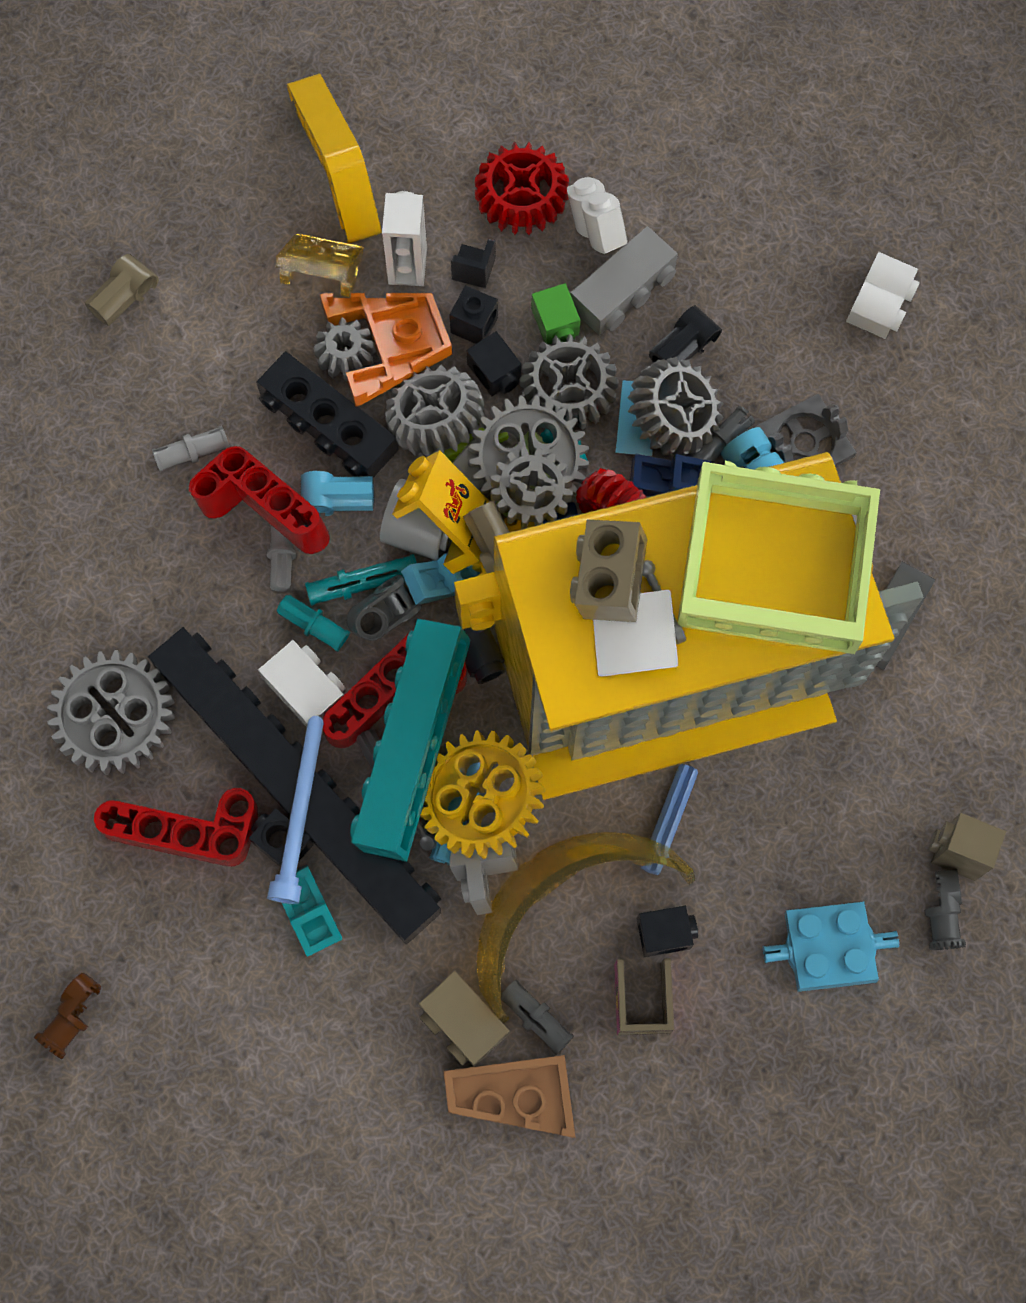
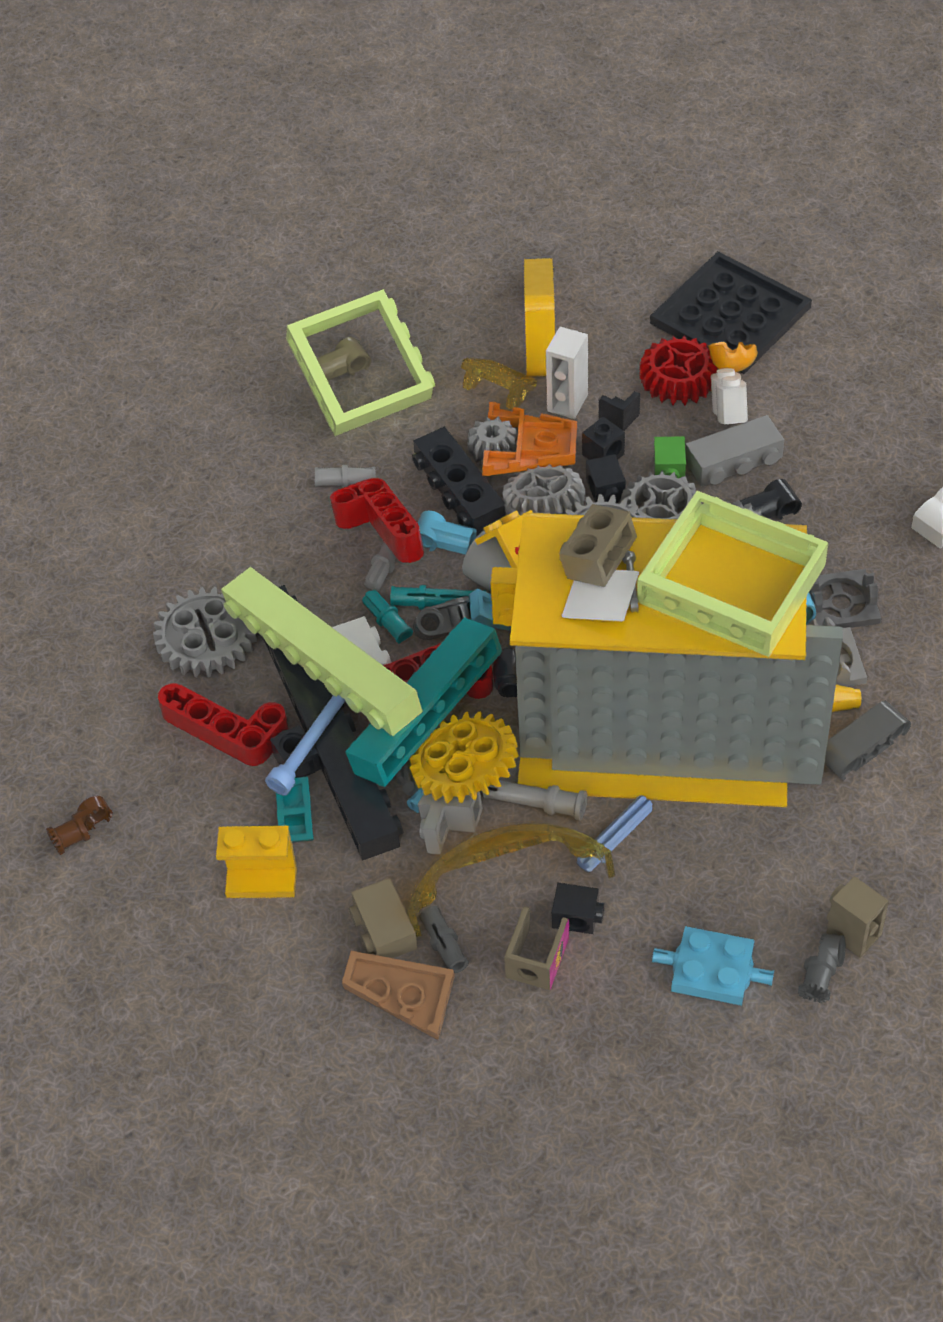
camera: 25 degrees right, 20 degrees down
(109, 331) = (337, 420): none -> yellowish green window
(270, 718) = (322, 652): none -> yellowish green brick
(299, 1006) = (257, 861): none -> yellow panel
(550, 88) = (731, 306): none -> black plate
(583, 159) = (736, 359): none -> light orange hair
(588, 803) = (551, 799): none -> light grey pin

